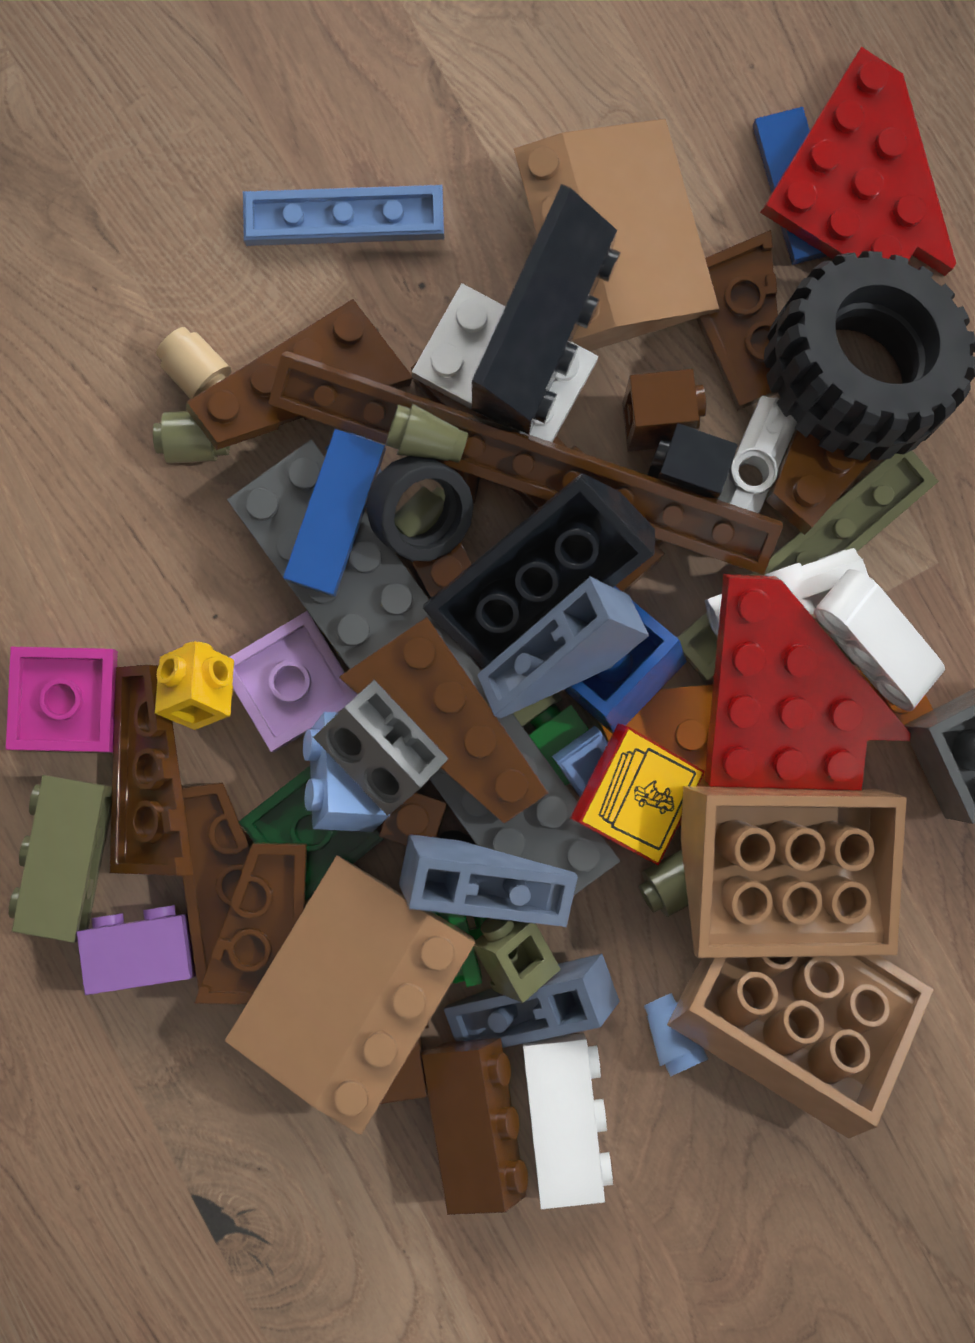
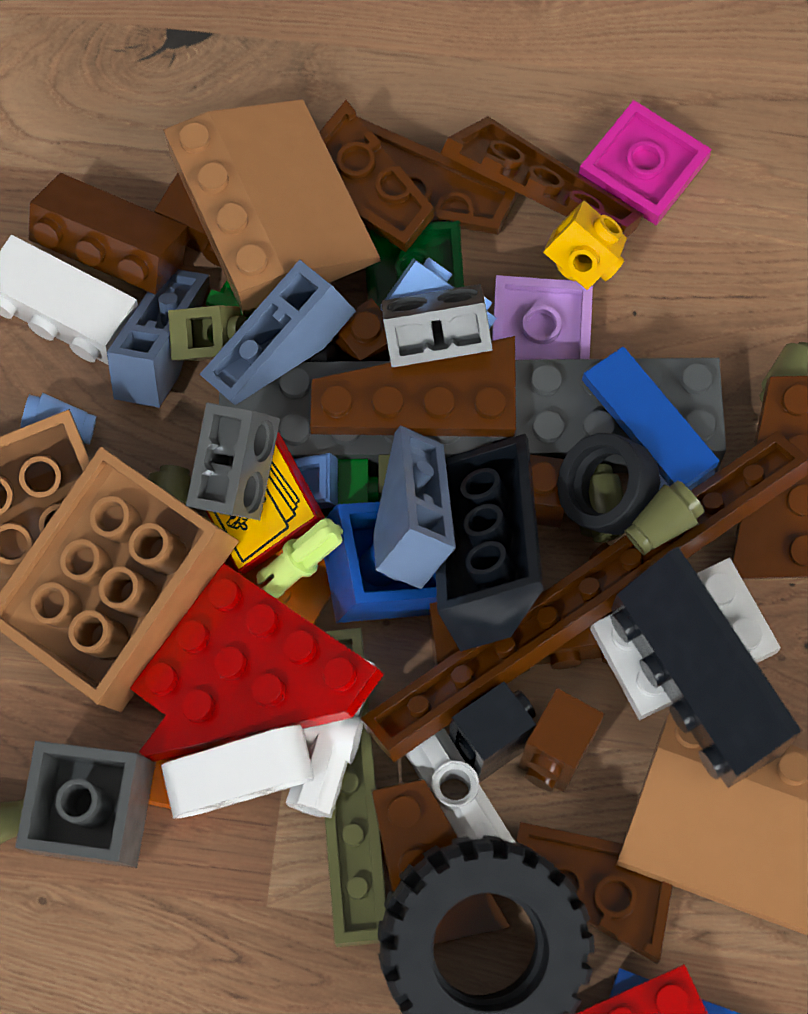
camera: 120 degrees right, 15 degrees down
(61, 858) = (522, 89): olive brick -> none
(136, 952) = (416, 92): medium lavender brick -> none
(638, 827) = (233, 461): none -> dark grey brick
(665, 720) = (300, 557): none -> yellowish green axle

